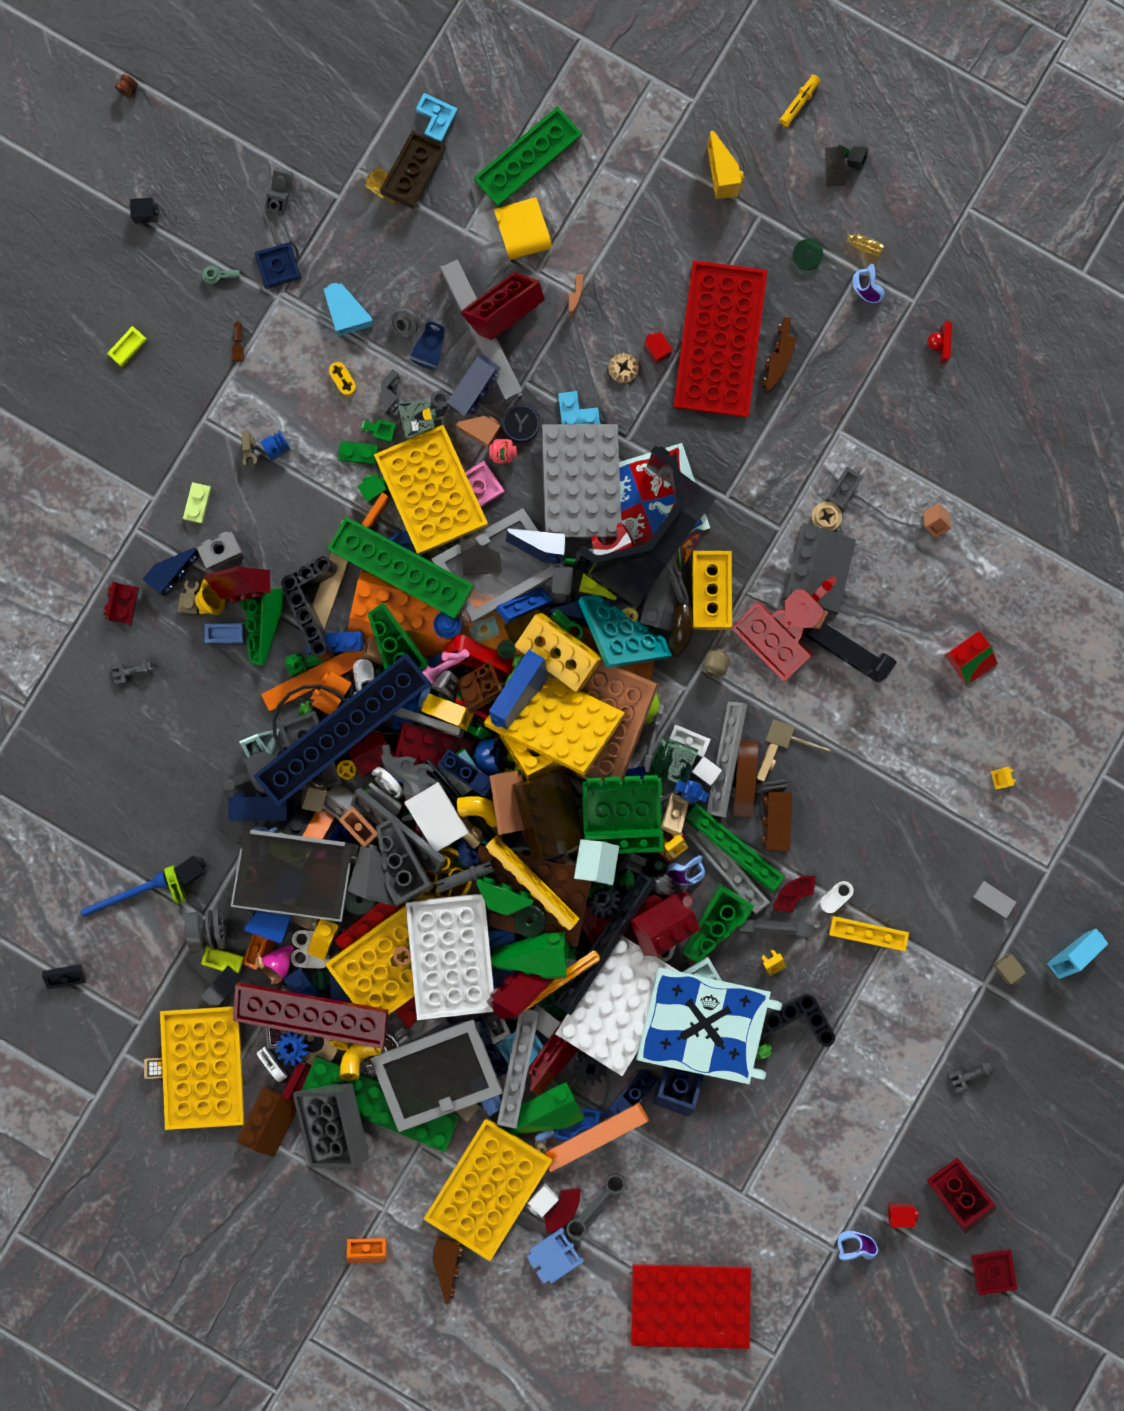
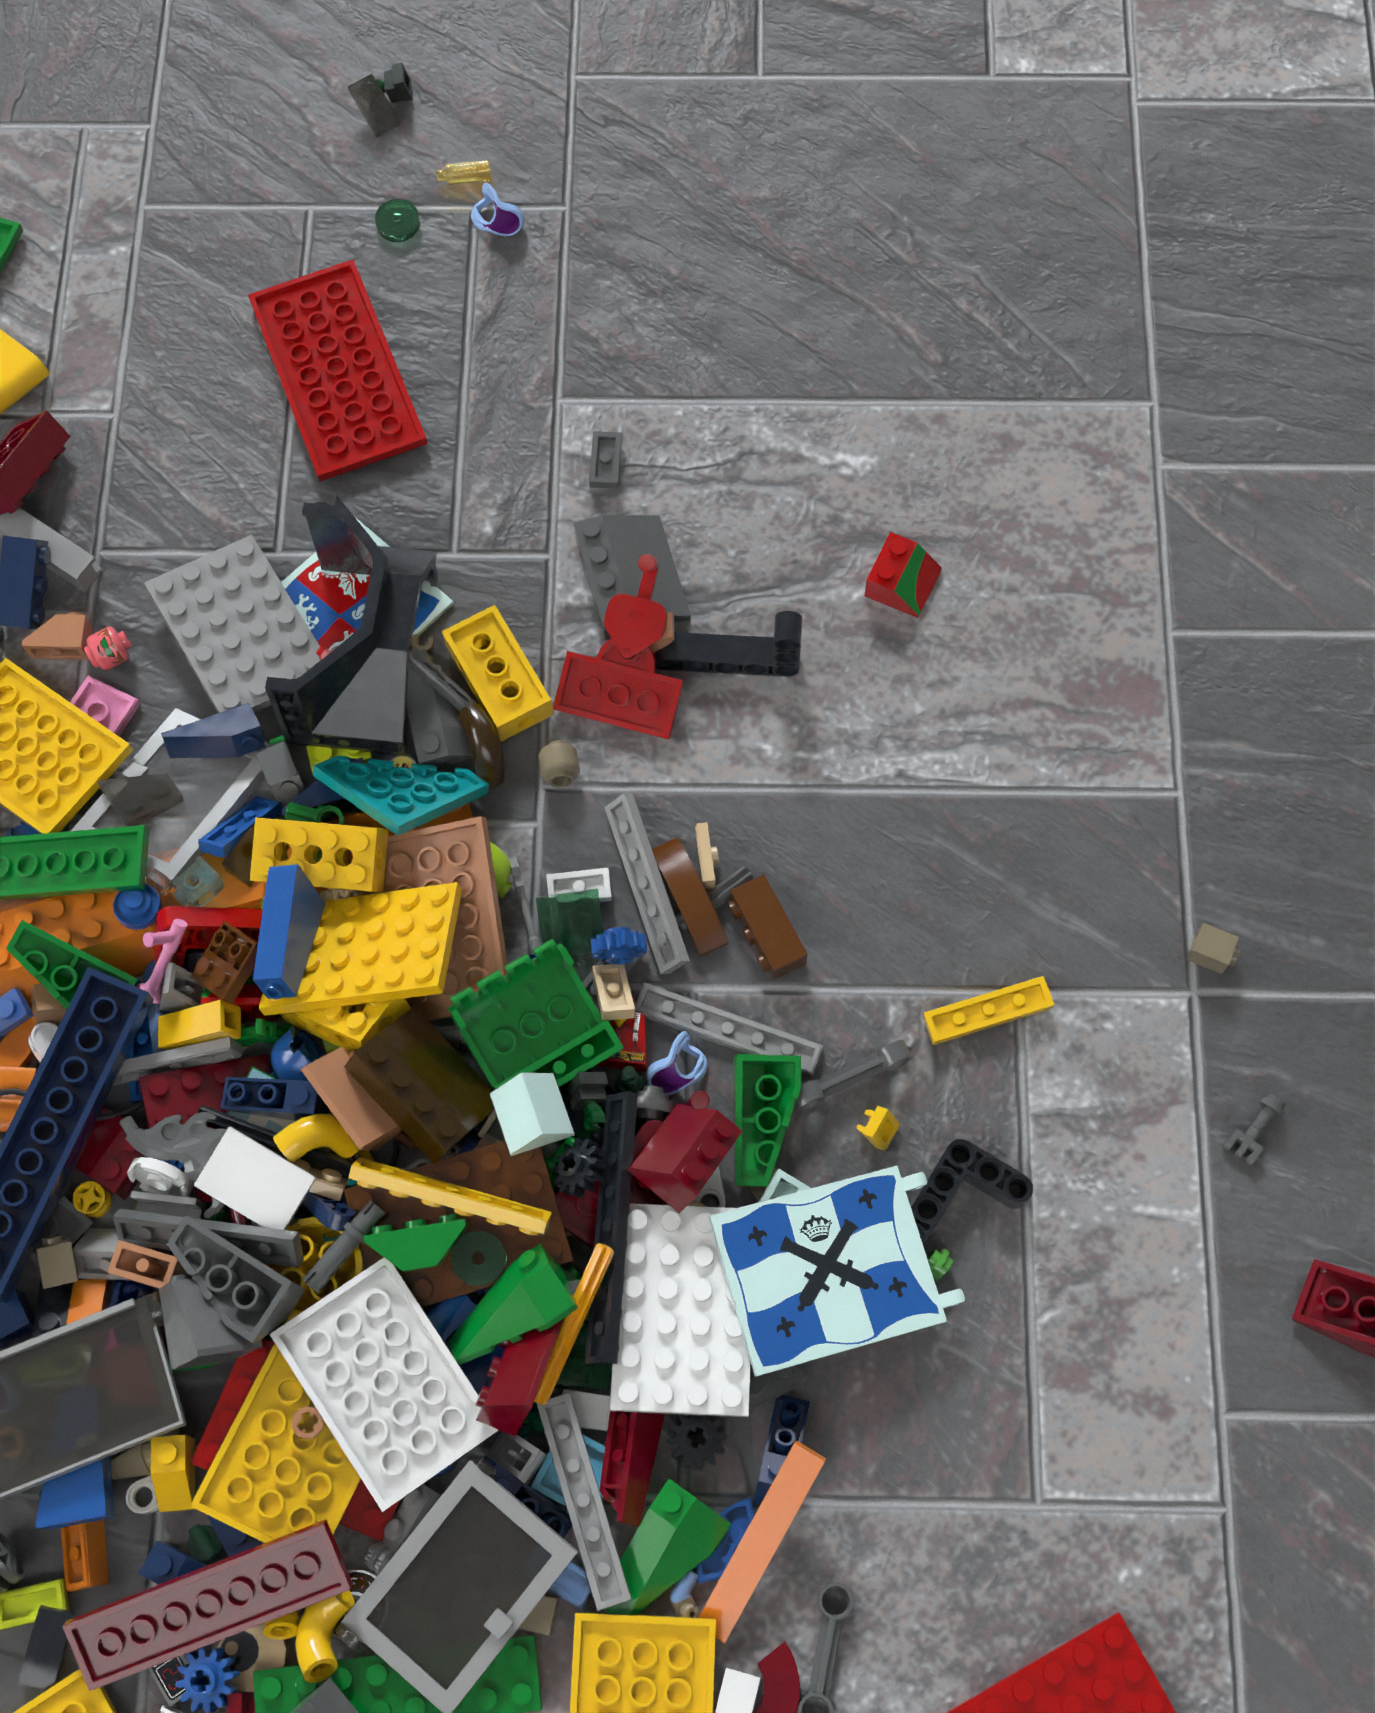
camera: 25 degrees left, 15 degrees down
(275, 964) = (117, 1560): dark pink hat -> none
(310, 962) = (175, 1524): white piece -> none
(355, 907) = (190, 1386): sand green piece -> none
(506, 649) = (244, 897): clear green plate -> none
(520, 423) = (117, 603): black tile -> none
(570, 410) = (177, 552): medium azure plate -> none
(574, 298) = (111, 411): nougat slope -> none
(626, 375) = (231, 475): tan gear -> none
(657, 347) = (257, 418): red brick -> none
(675, 846) = (638, 1033): yellow tile -> none
(678, 1090) = (847, 1393): dark blue slope -> none
(688, 547) = (429, 634): shield -> none
(706, 771) = (626, 912): white panel -> none
(724, 169) = (229, 171): yellow slope -> none
(734, 848) = (727, 997): green tile -> none
(778, 362) = (428, 350): reddish brown slope -> none
(781, 734) = (707, 808): dark tan piece -> none
(792, 892) = (848, 1013): dark red tile -> none
(812, 83) = (290, 50): yellow pin -> none
(829, 508) = (602, 495): tan gear -> none
(833, 900) = (909, 991): white piece -> none
(868, 1247) = (1272, 1473): light blue piece -> none
(902, 1215) = (1291, 1391): red brick -> none
(937, 520) = (751, 435): nougat panel -> none
(942, 341) = (630, 230): red tile -> none
(994, 899) = (1132, 869): light grey tile -> none
(1002, 778) = (1040, 703): yellow tile -> none
(1078, 954) = (1291, 876): medium azure slope -> none

